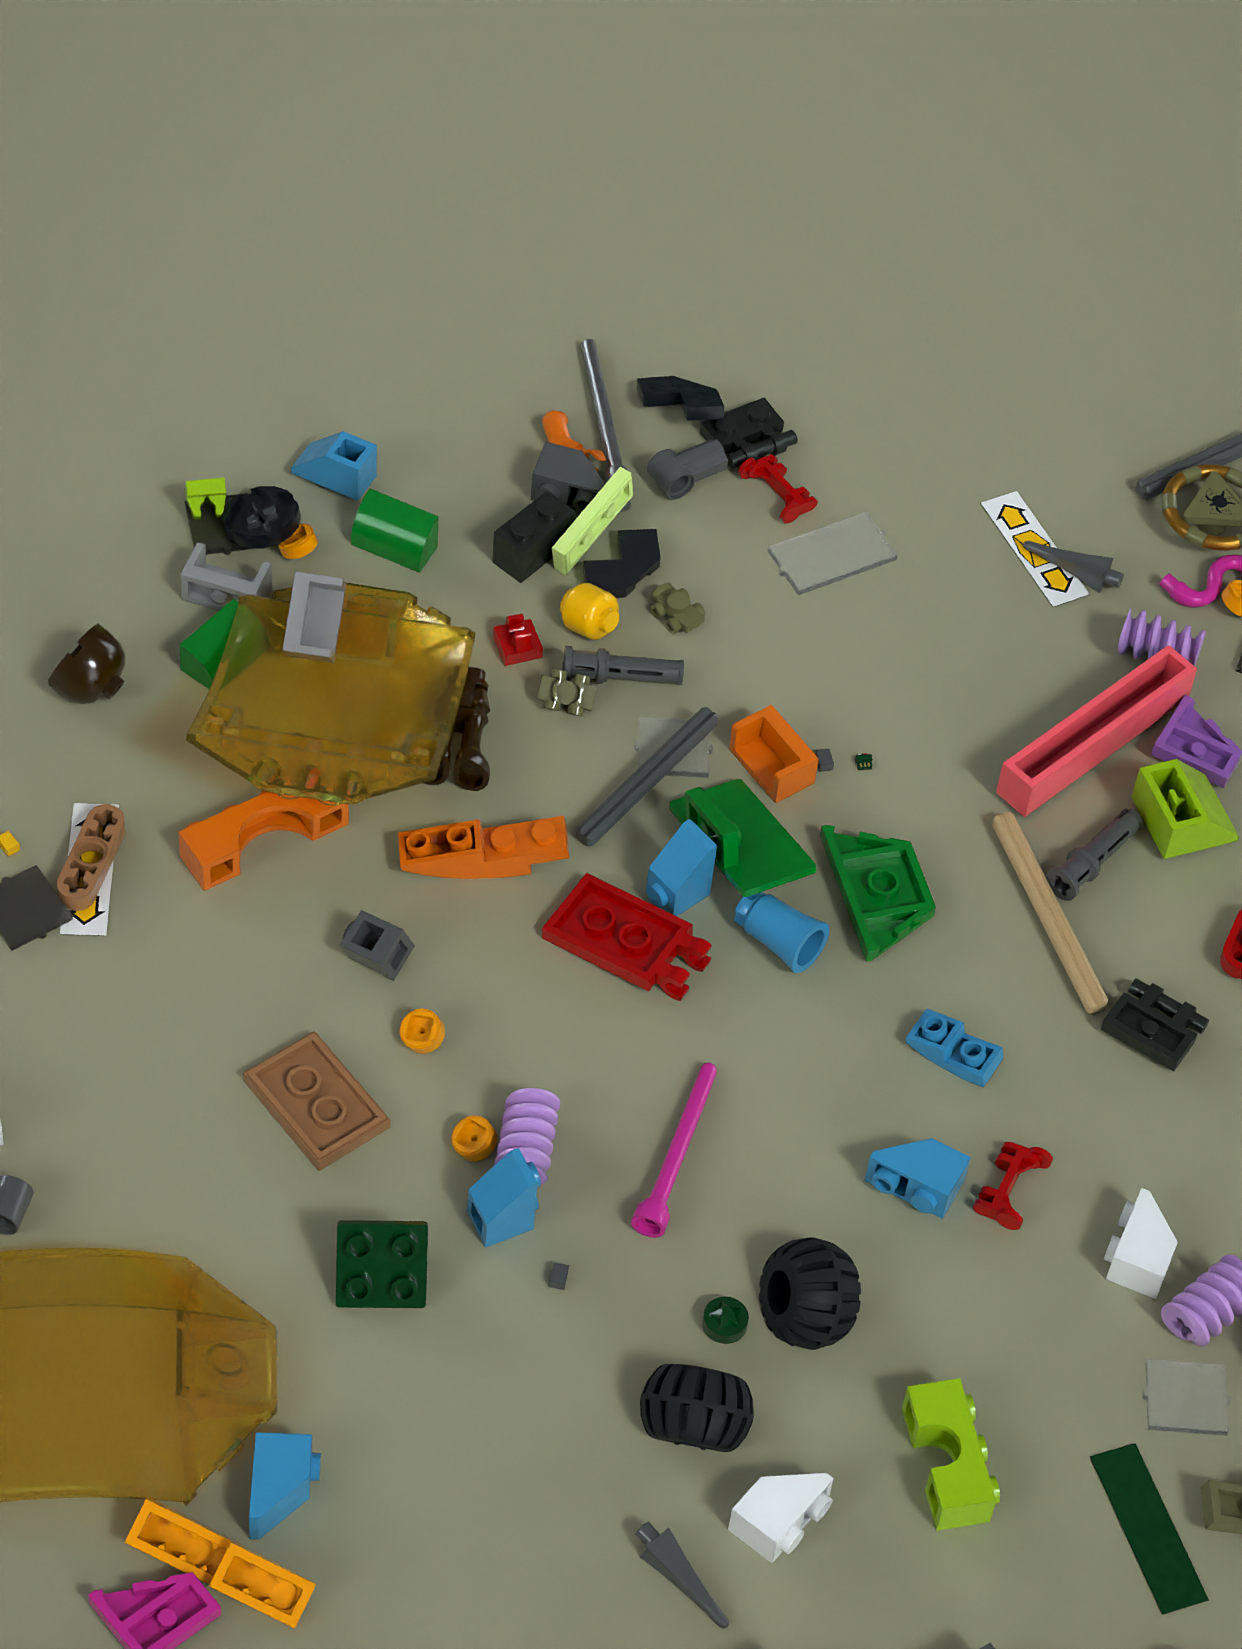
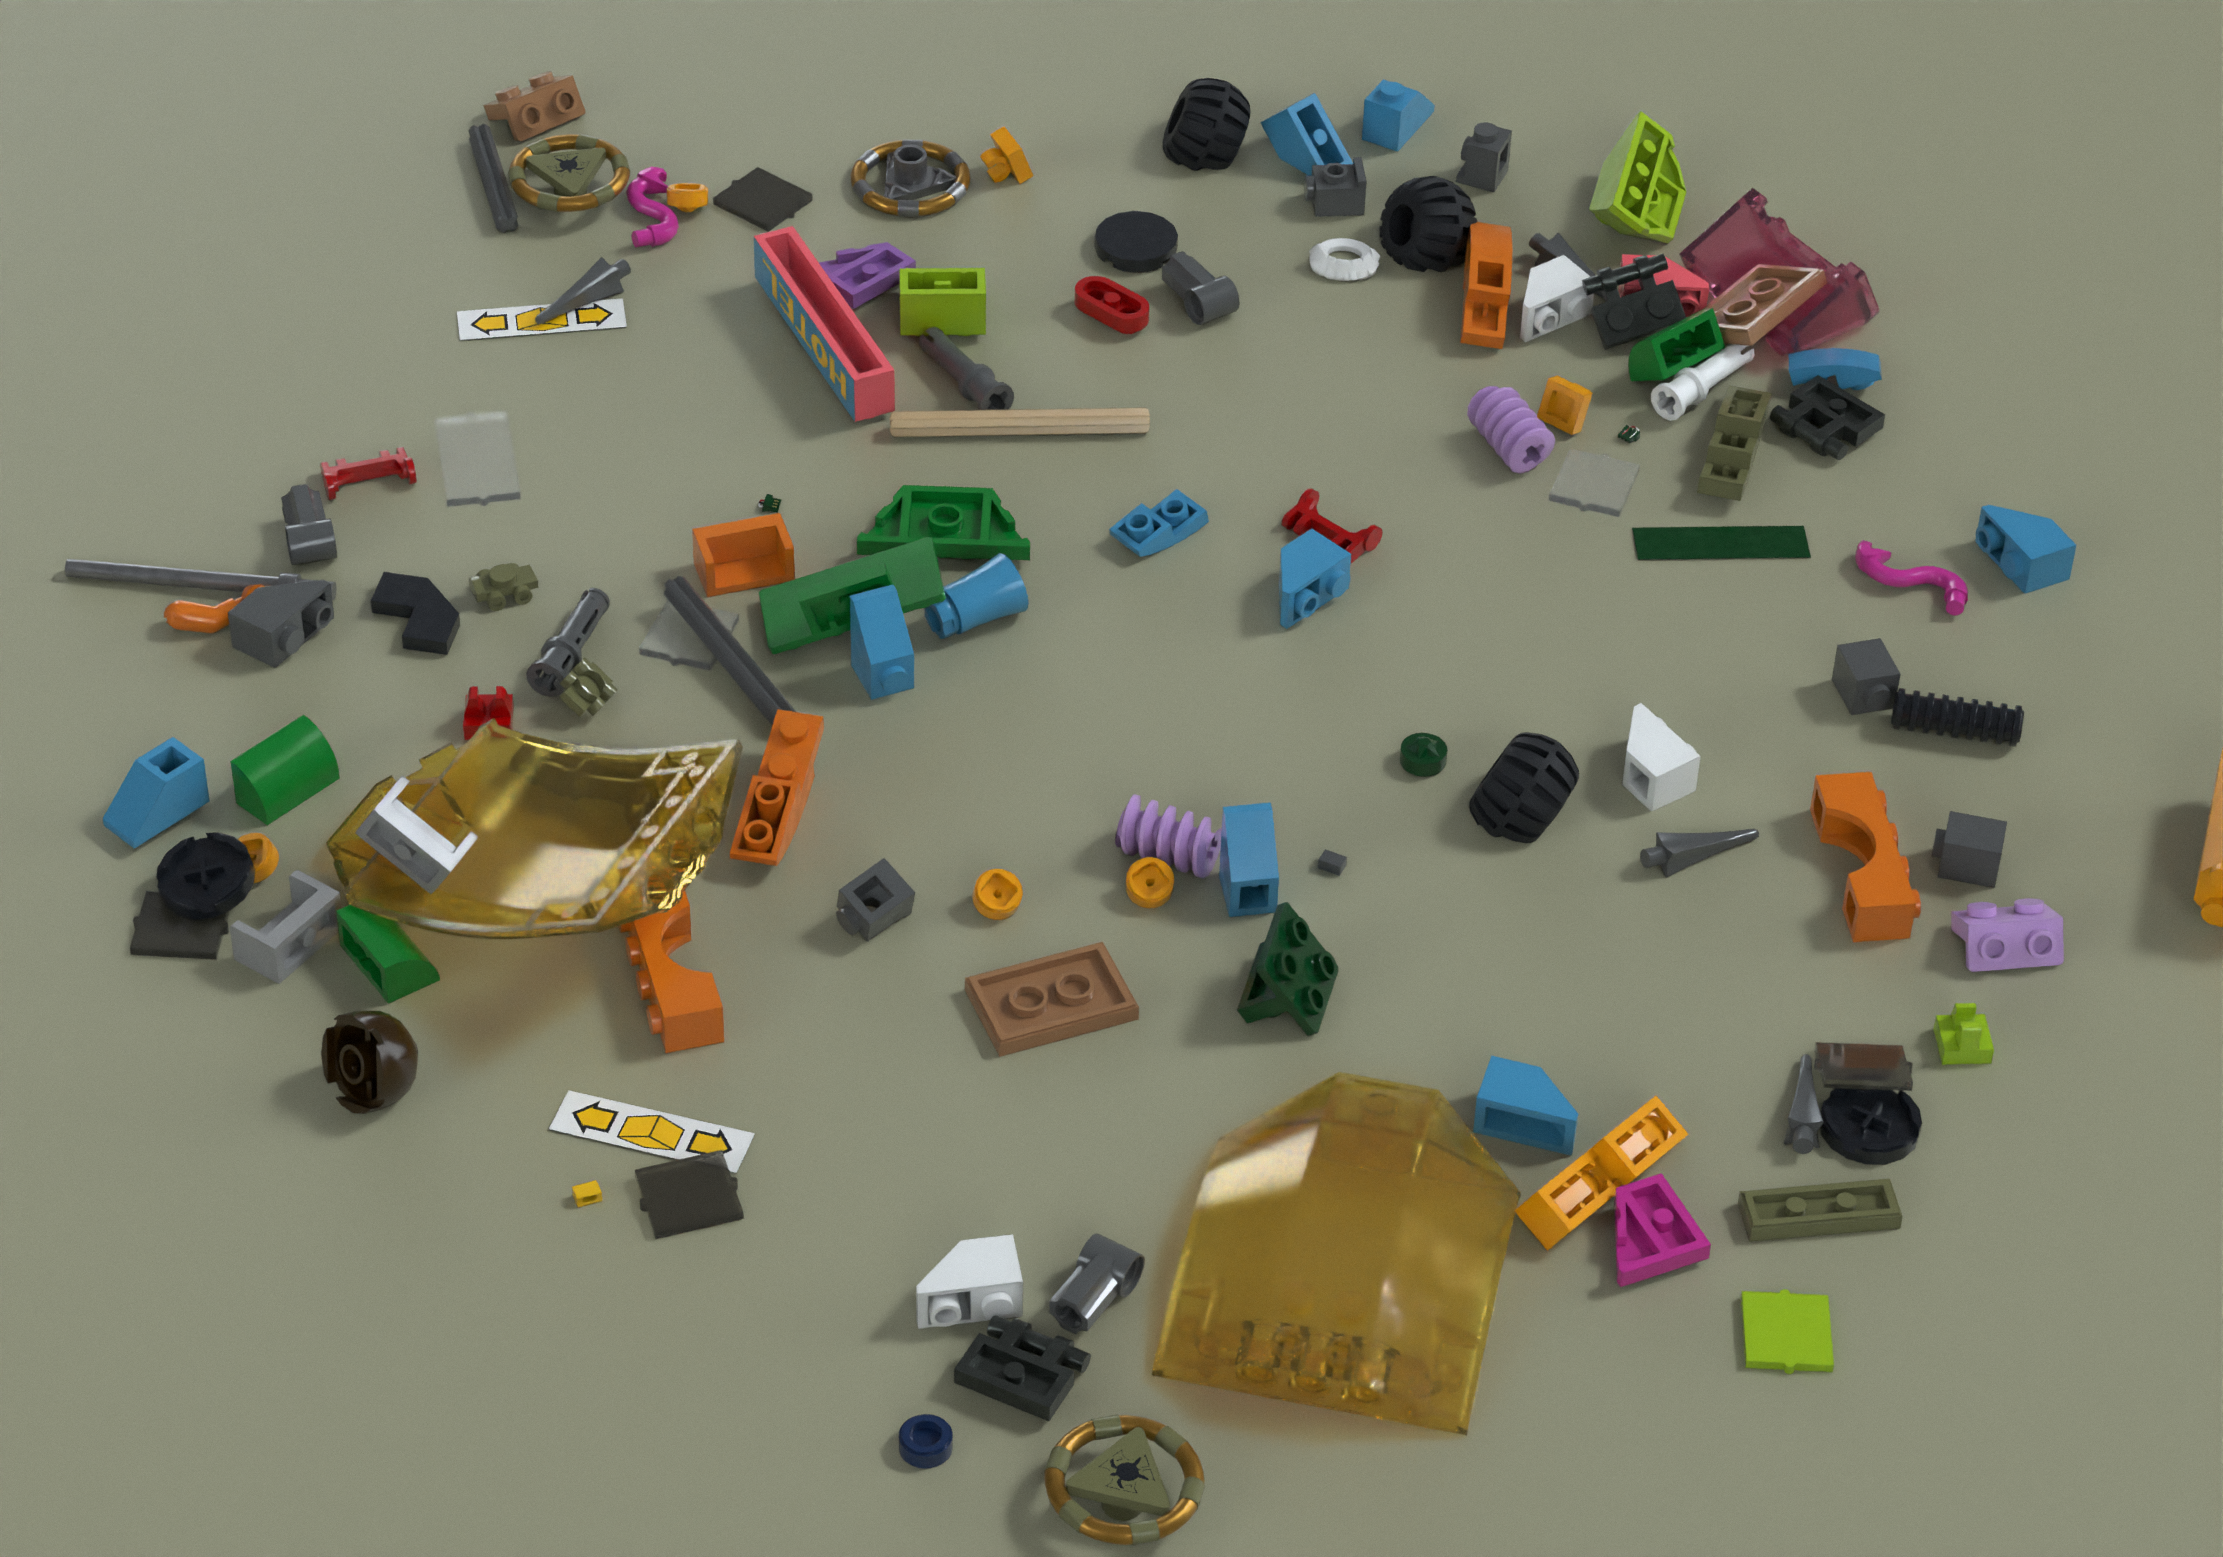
camera: 70 degrees left, 10 degrees down
(92, 873) = (635, 1100): medium nougat beam -> none
(205, 490) = (147, 913): lime tile -> none
(528, 537) = (353, 662): pearl dark grey brick -> none
(589, 611) = (483, 643): yellow head -> none
(592, 521) = (360, 608): yellowish green tile -> none
(626, 936) = (931, 718): red tile -> none
(652, 1214) = (1289, 774): dark pink piece -> none
(696, 400) = (183, 517): black tile -> none
(747, 426) = (263, 473): pearl dark grey plate -> none
(810, 1293) = (1432, 704): black wheel -> none
(943, 1418) = (1653, 630): lime arch -> none
(1144, 1250) = (1434, 456): white slope -> none
(1150, 1031) = (1183, 387): pearl dark grey plate -> none
(1153, 638) = (723, 255): lavender piece -> none

